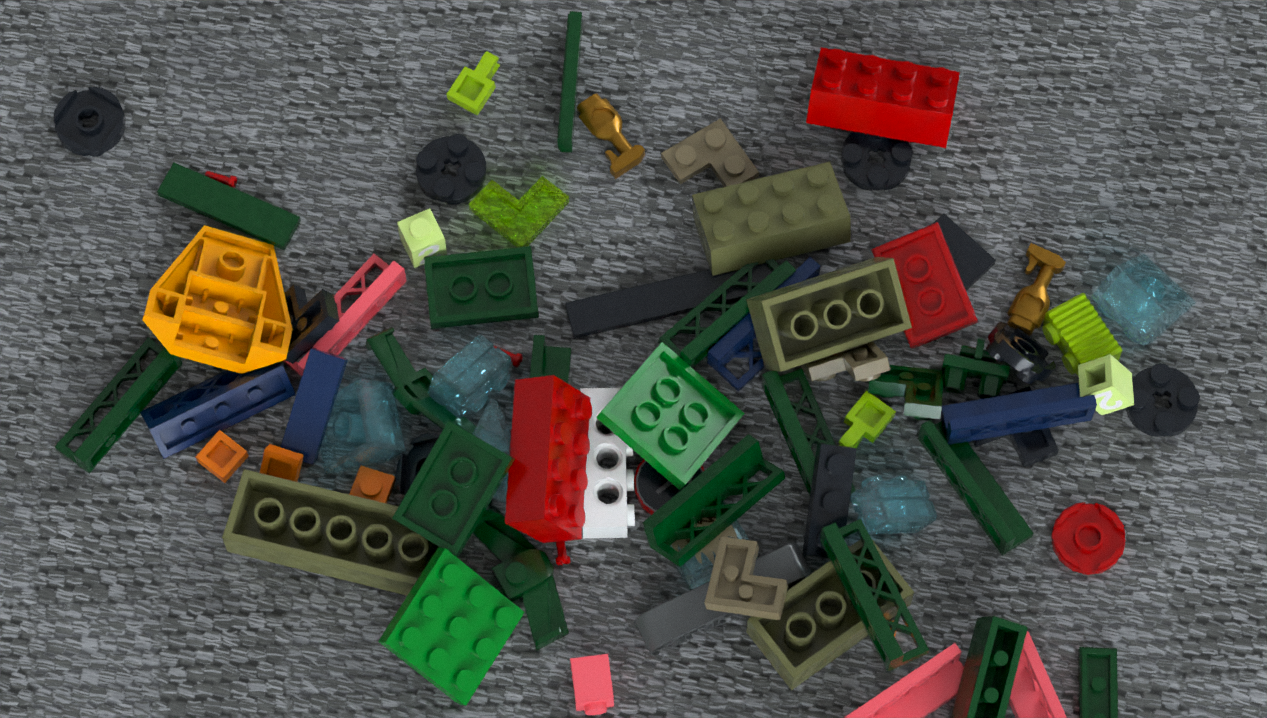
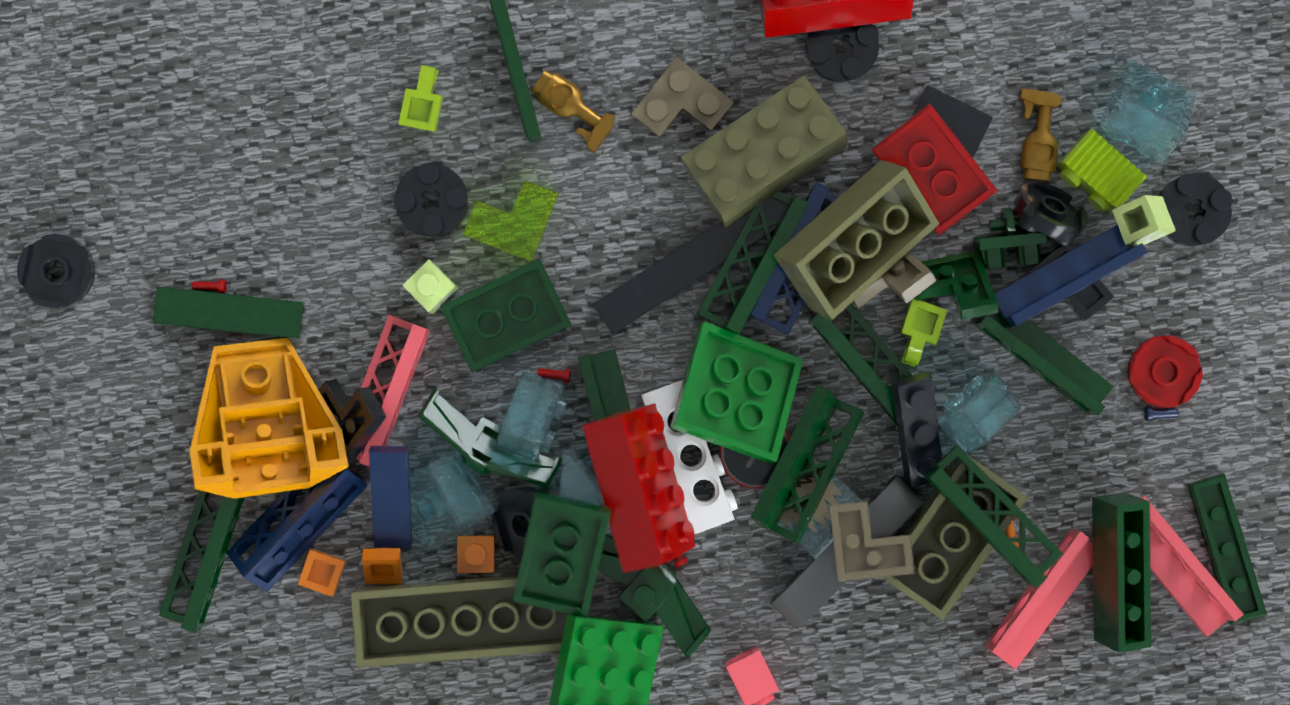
camera: 20 degrees left, 20 degrees up
(1071, 575) = (1160, 413): none -> dark blue piece

